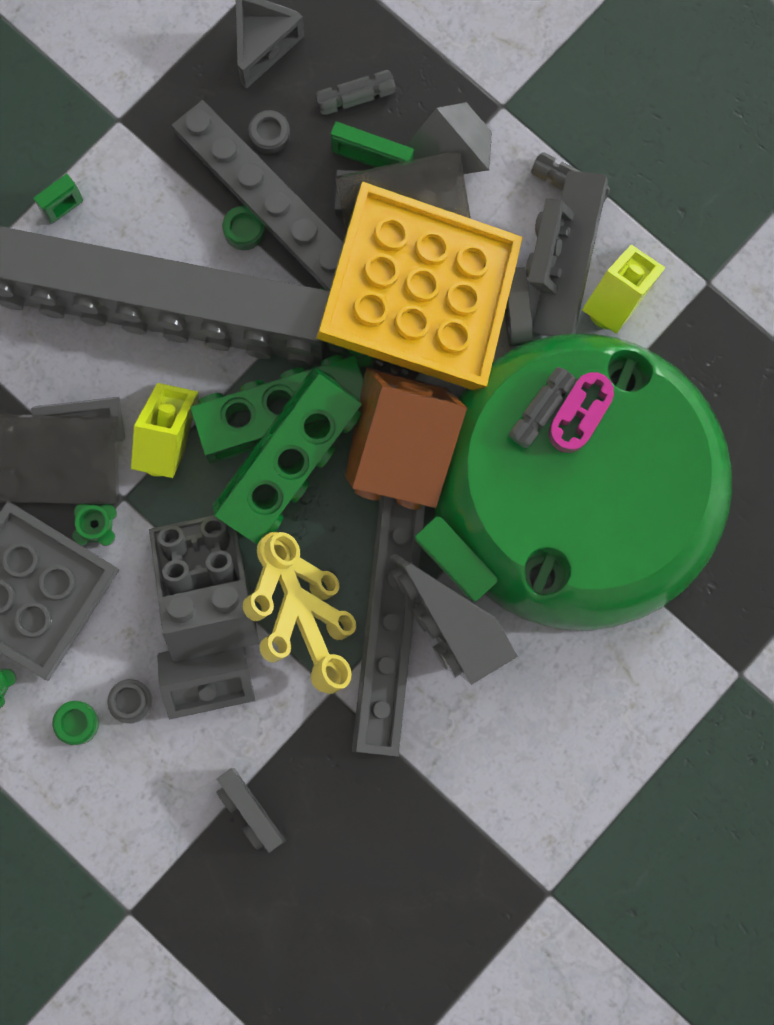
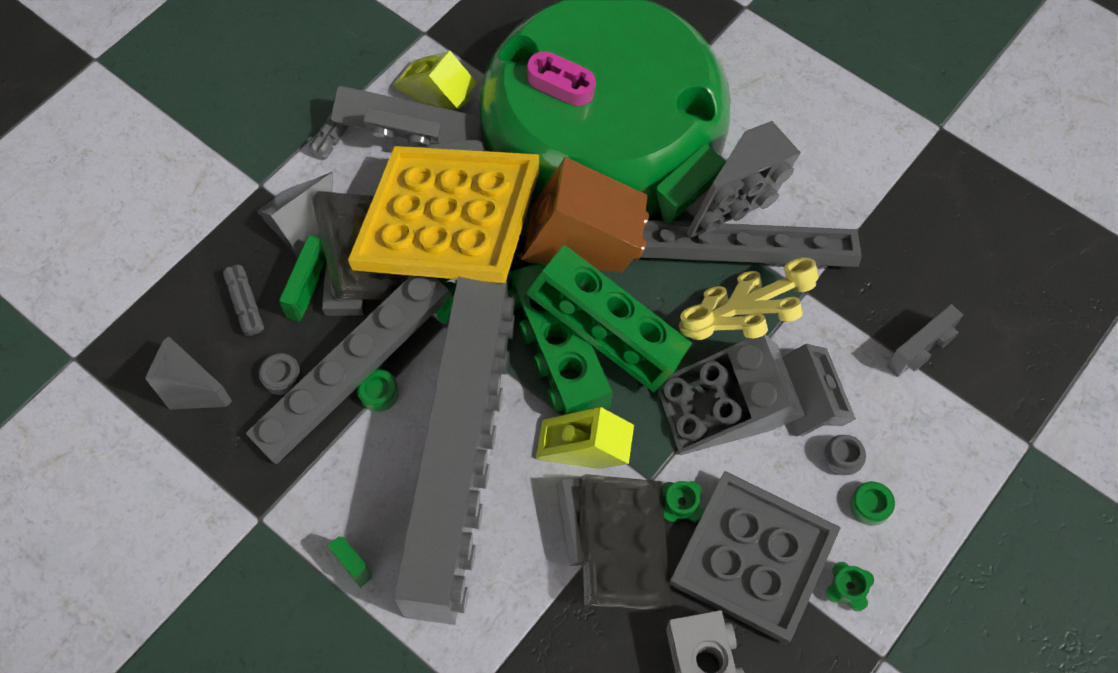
camera: 90 degrees left, 15 degrees down
(542, 407) = (559, 105): dark grey axle -> none

